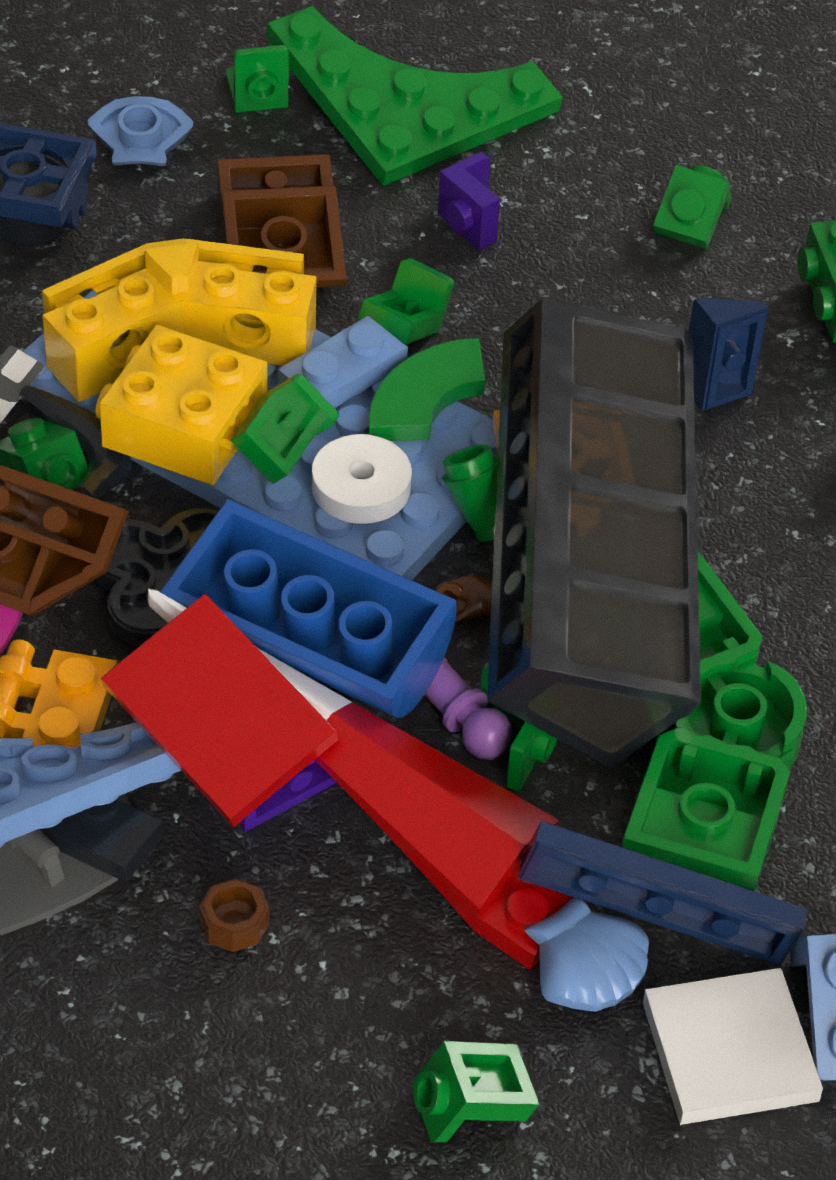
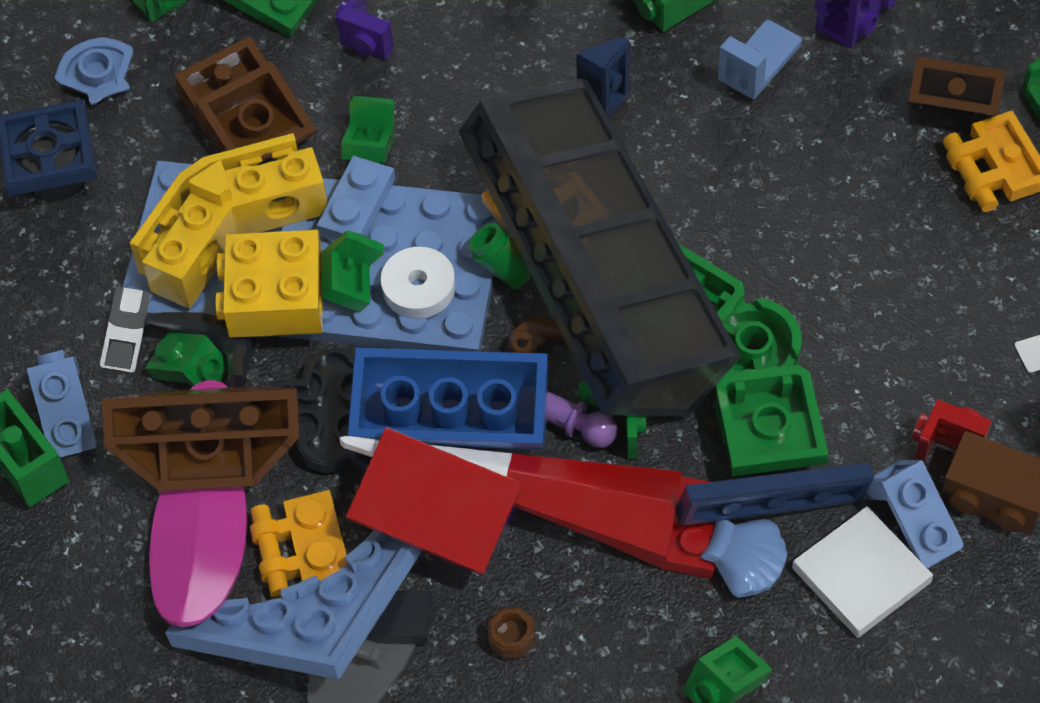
camera: 20 degrees left, 10 degrees up
(424, 387) = (419, 195): green tile -> none

